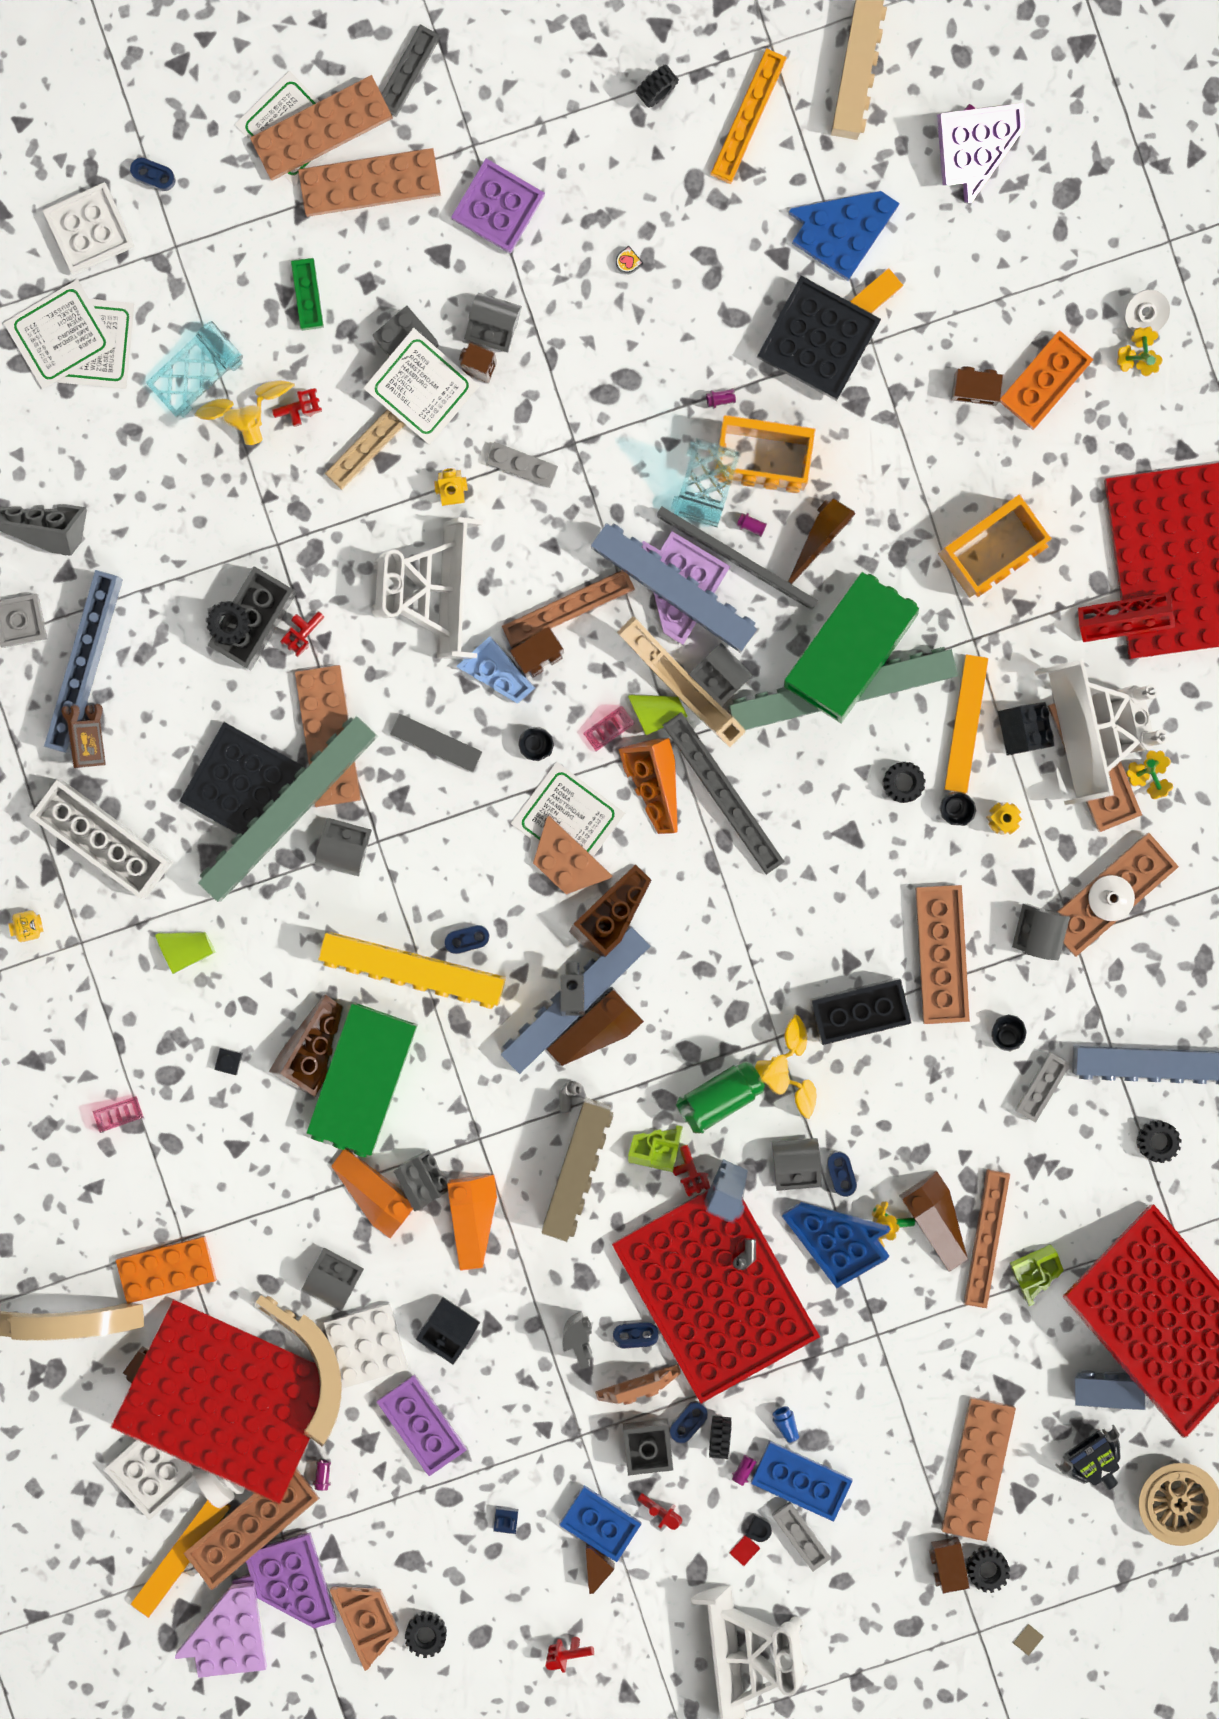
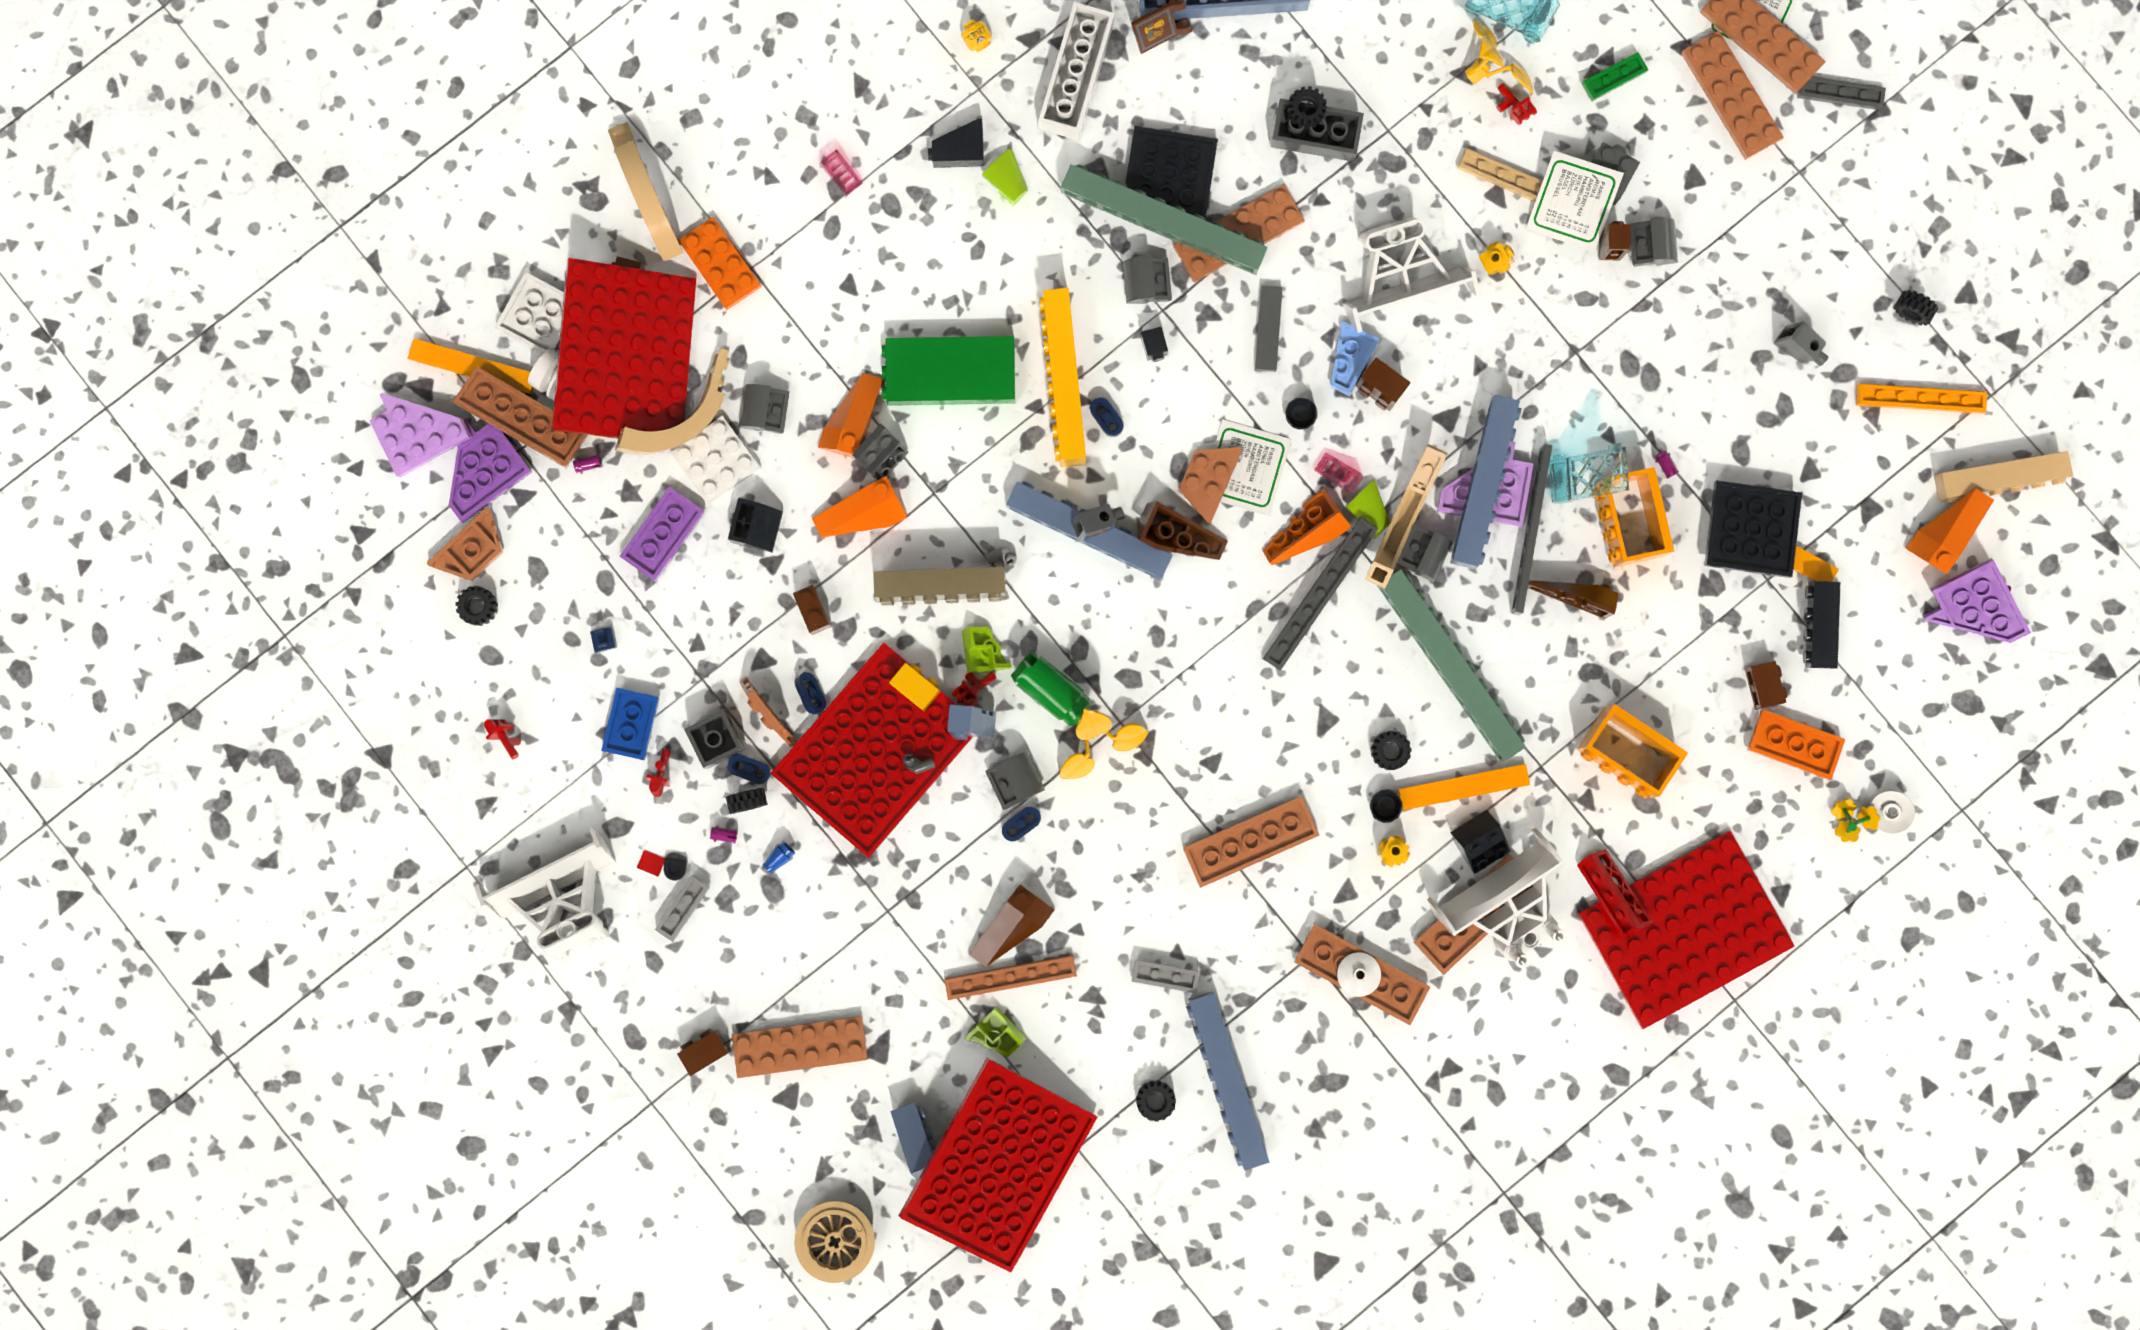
camera: 70 degrees right, 5 degrees down
(136, 985) = (959, 147): none -> black slope
(228, 1061) = (922, 251): black plate -> none
(299, 637) = (1315, 177): red arm -> none
(307, 1052) = (956, 315): reddish brown wedge -> none
(411, 864) = (1154, 344): none -> black brick
(498, 206) = (1756, 211): medium lavender plate -> none
(522, 465) = (1539, 314): light grey plate -> none
(553, 1304) = (812, 610): none -> reddish brown brick
(568, 607) = (1434, 402): nougat tile -> none
(577, 1337) = (791, 637): dark grey brick -> none
(598, 1568) = (590, 735): reddish brown slope -> none
(601, 1026) = (1072, 561): reddish brown wedge -> none
(628, 261) = (1753, 340): tile -> none
(651, 214) = (1802, 343): none -> dark grey torso
(669, 1230) = (914, 686): none -> yellow brick
(751, 524) = (1566, 531): magenta pin -> none
(801, 1481) = (732, 890): blue plate -> none
(838, 1242) = (960, 841): blue wing -> none
(843, 229) = (1855, 517): blue wing -> none
(851, 647) = (1494, 657): green brick -> none
(860, 1011) = (1173, 785): black brick -> none
(881, 1217) = (991, 879): yellow plant -> none
(896, 146) = (1948, 534): none -> orange wedge
(938, 307) = (1822, 624): none -> black brick
(988, 1556) = (698, 1089): black tyre -> none
(1008, 1033) = (1203, 926): black hair -> none
(1028, 1639) = (660, 1151): dark tan sticker -> none
(1040, 932) = (1304, 921): dark grey brick -> none
(1094, 1459) = (846, 1148): torso -> none
(1155, 763) = (1492, 968): yellow plant -> none

